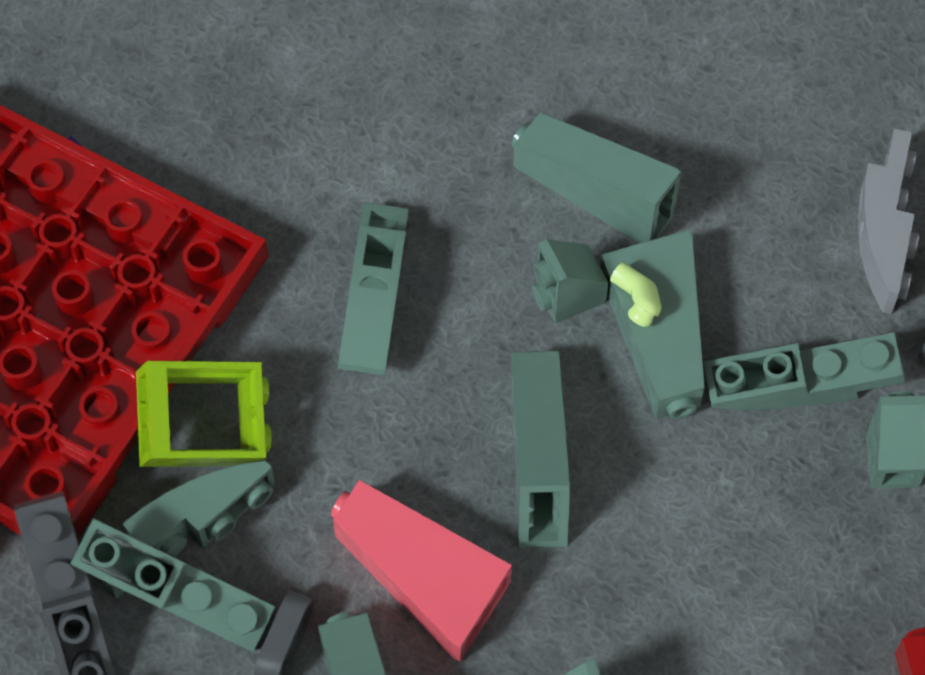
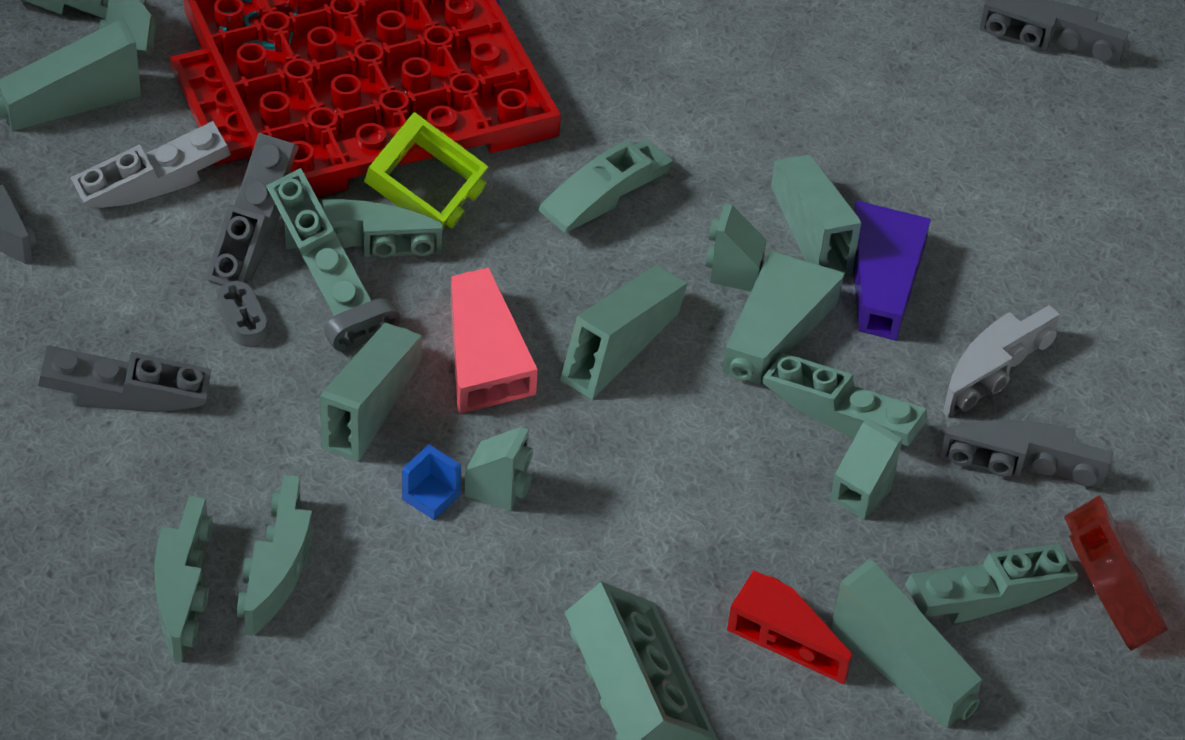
camera: 35 degrees right, 15 degrees down
(643, 293) = (771, 282): yellowish green arm -> none
(713, 189) = (886, 266): none -> dark purple slope

